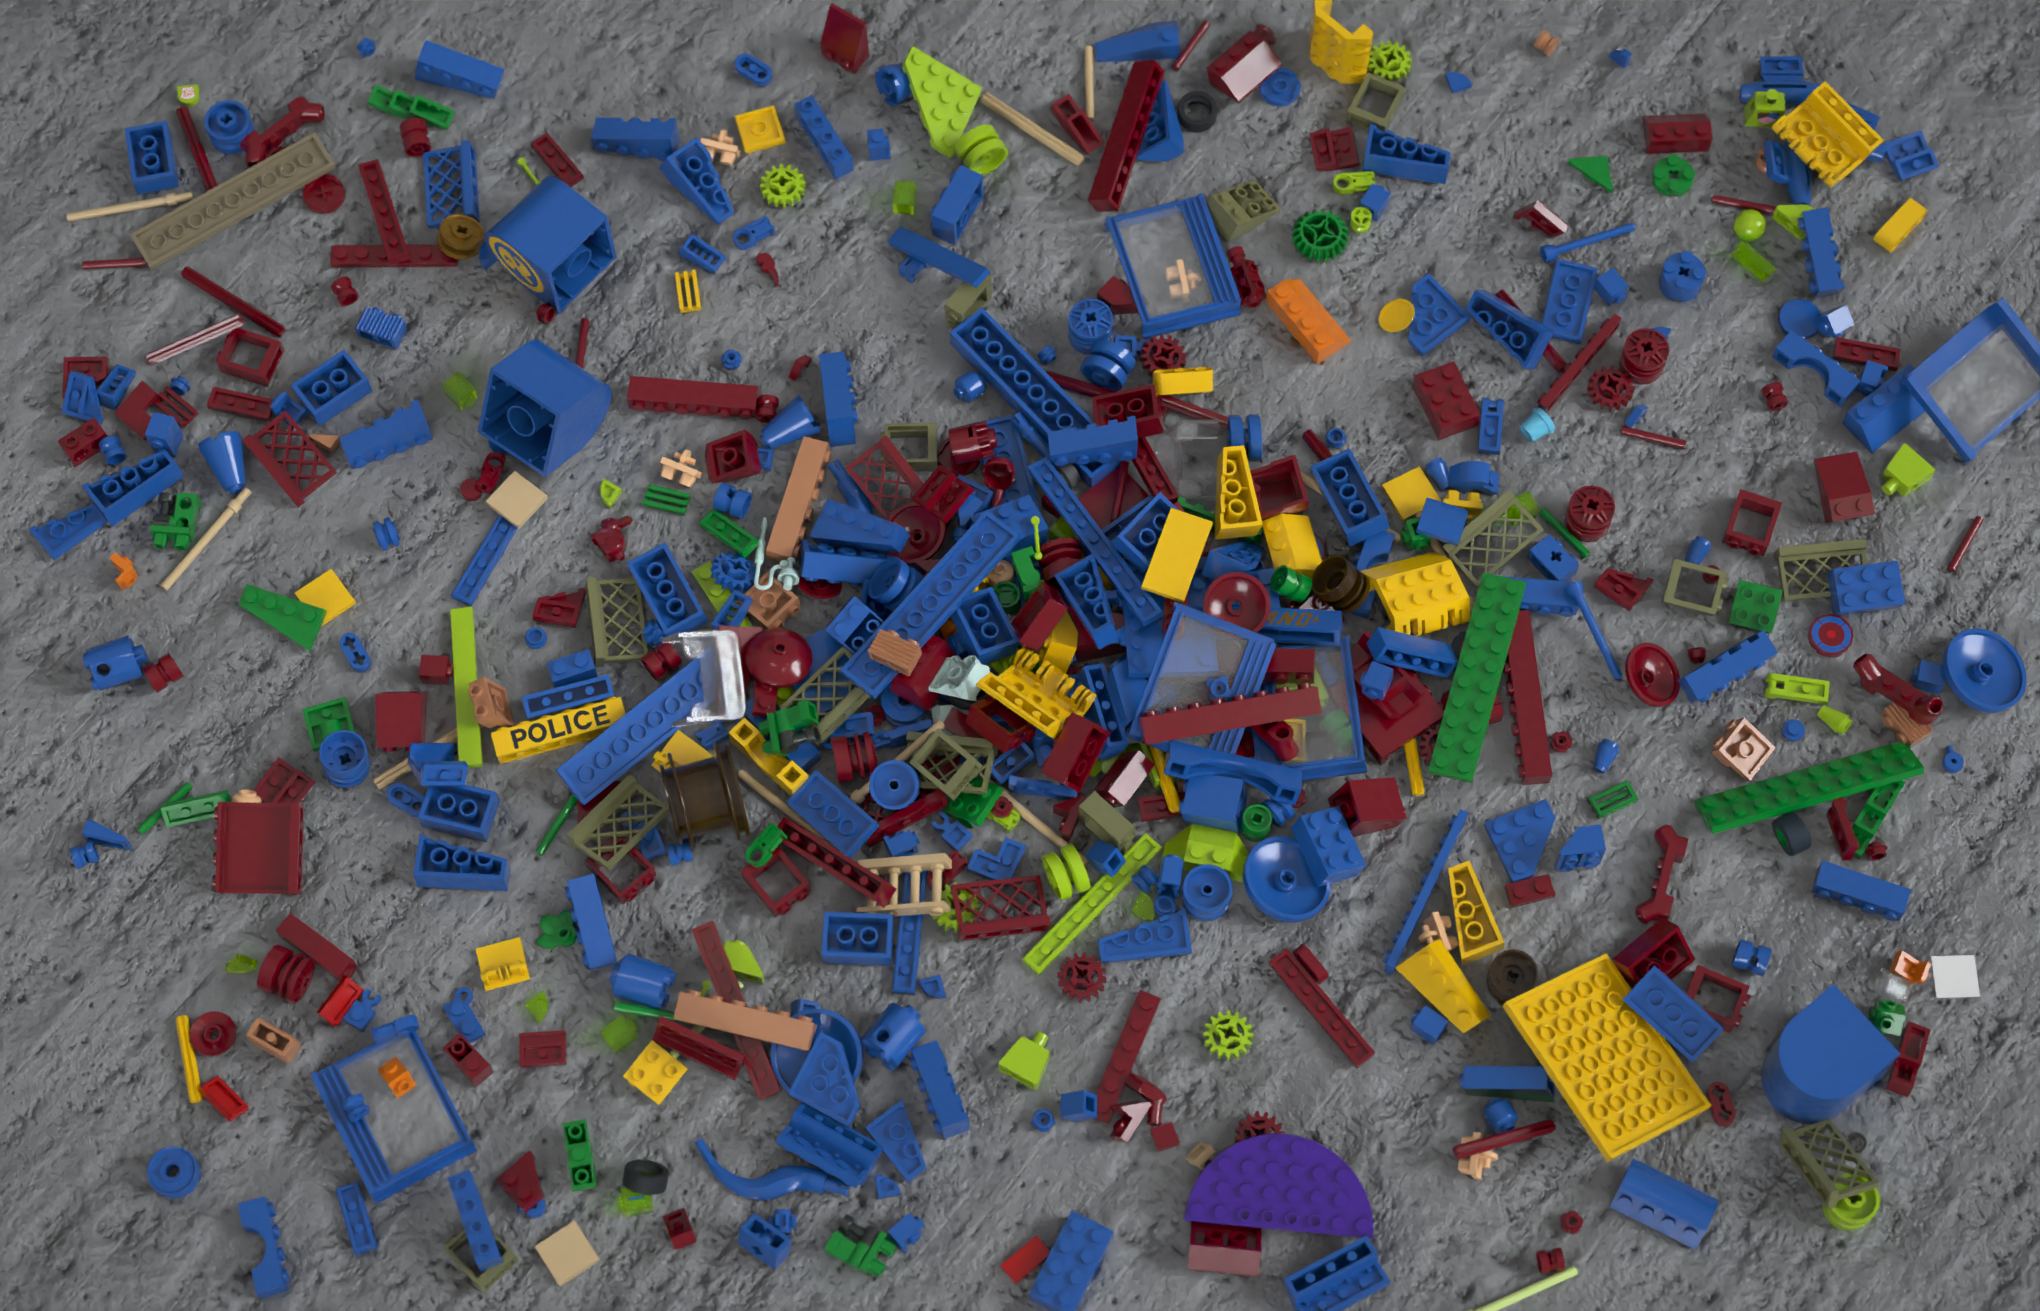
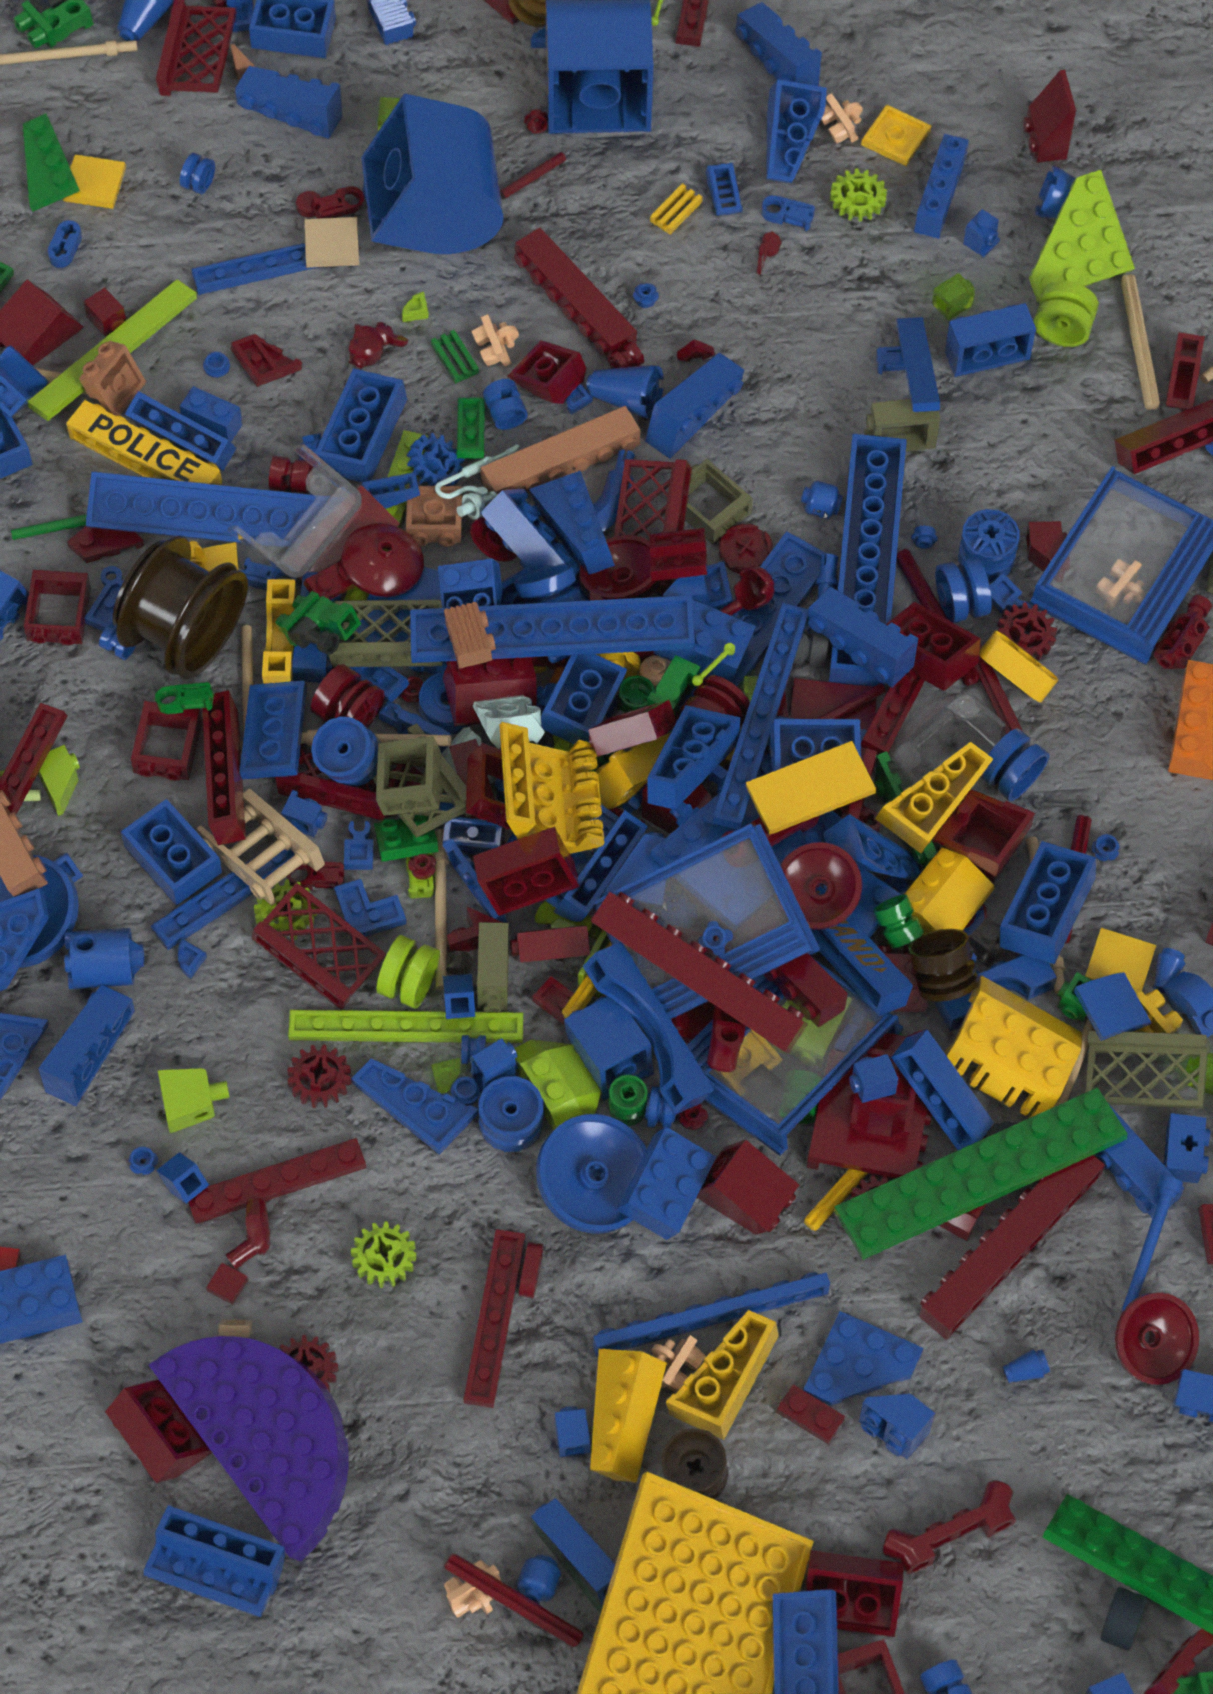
camera: 45 degrees right, 5 degrees down
(598, 626) = (275, 401): olive fence -> none
(602, 815) = (92, 549): olive fence -> none
(755, 69) = (947, 87): blue plate -> none
(972, 442) = (760, 540): dark red gear -> none
(1131, 1114) = (221, 1232): slope -> none
(1561, 747) = (996, 1320): dark red plate -> none
(1596, 808) = (985, 1425): green tile -> none
(1742, 748) = (1169, 1494): nougat plate -> none

